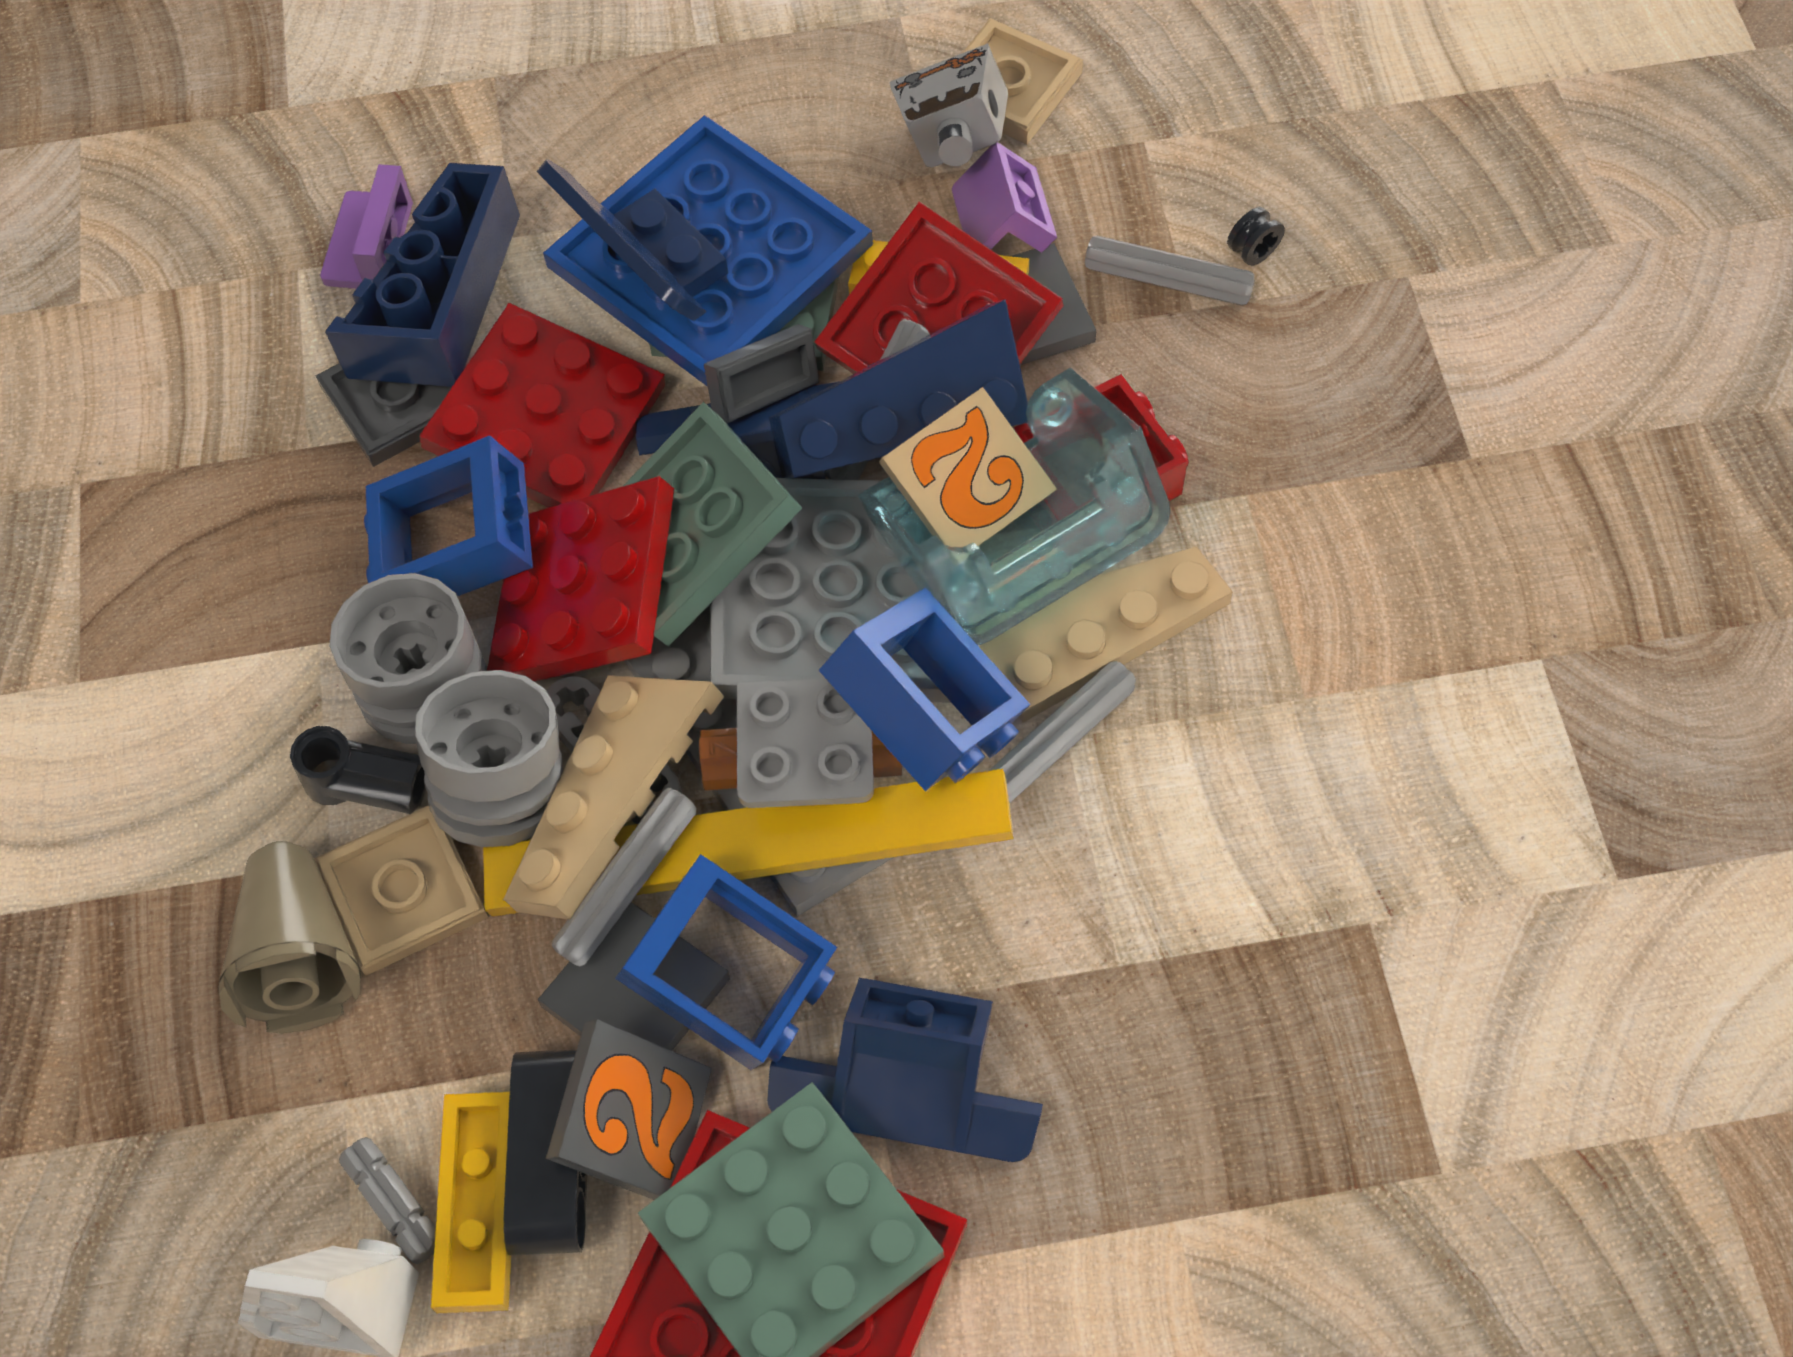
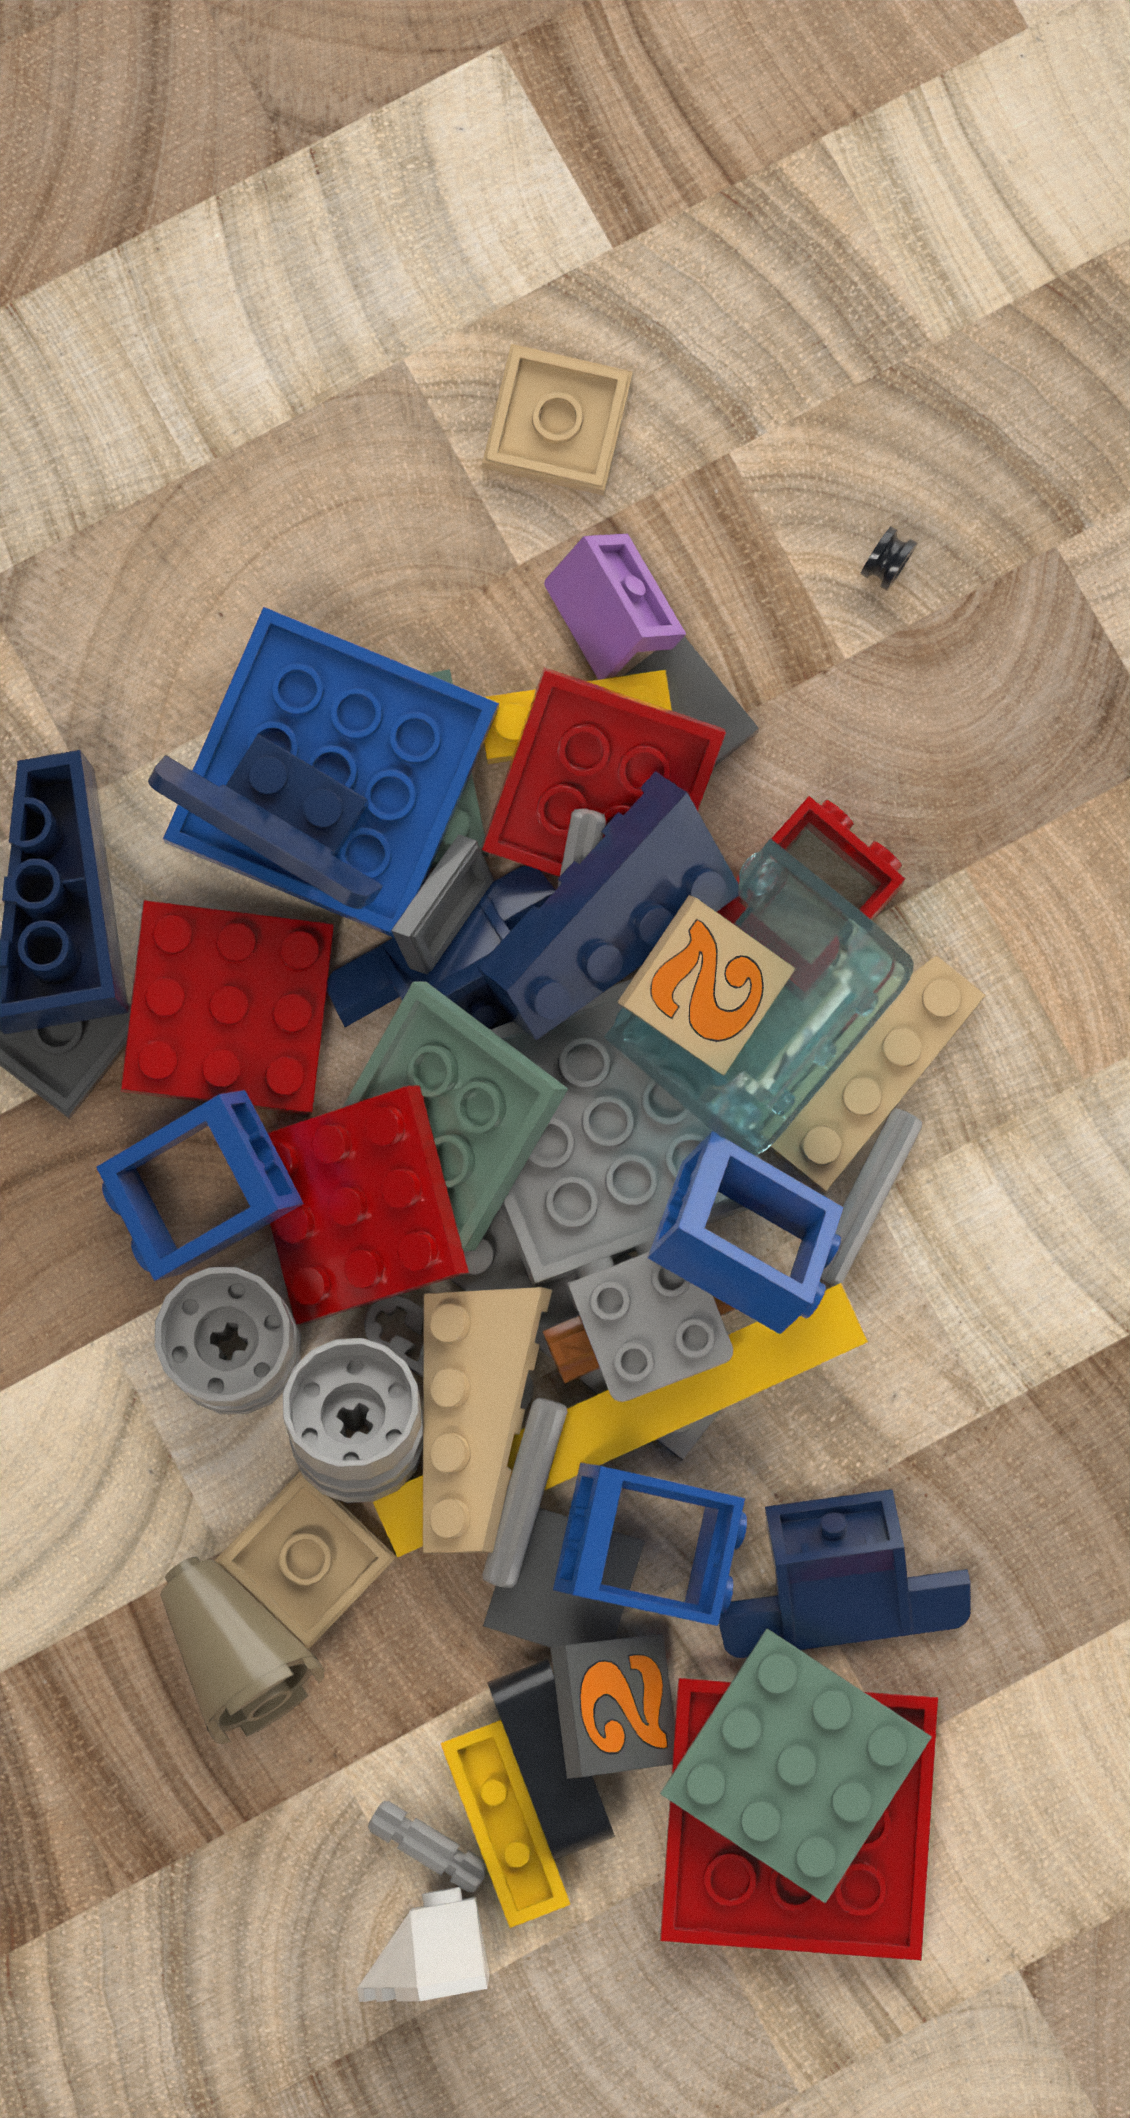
camera: 25 degrees left, 20 degrees up
(361, 775) = (230, 1462): black piece -> none
(954, 106) = (524, 509): light grey torso -> none
(1169, 270) = (809, 624): light grey axle -> none

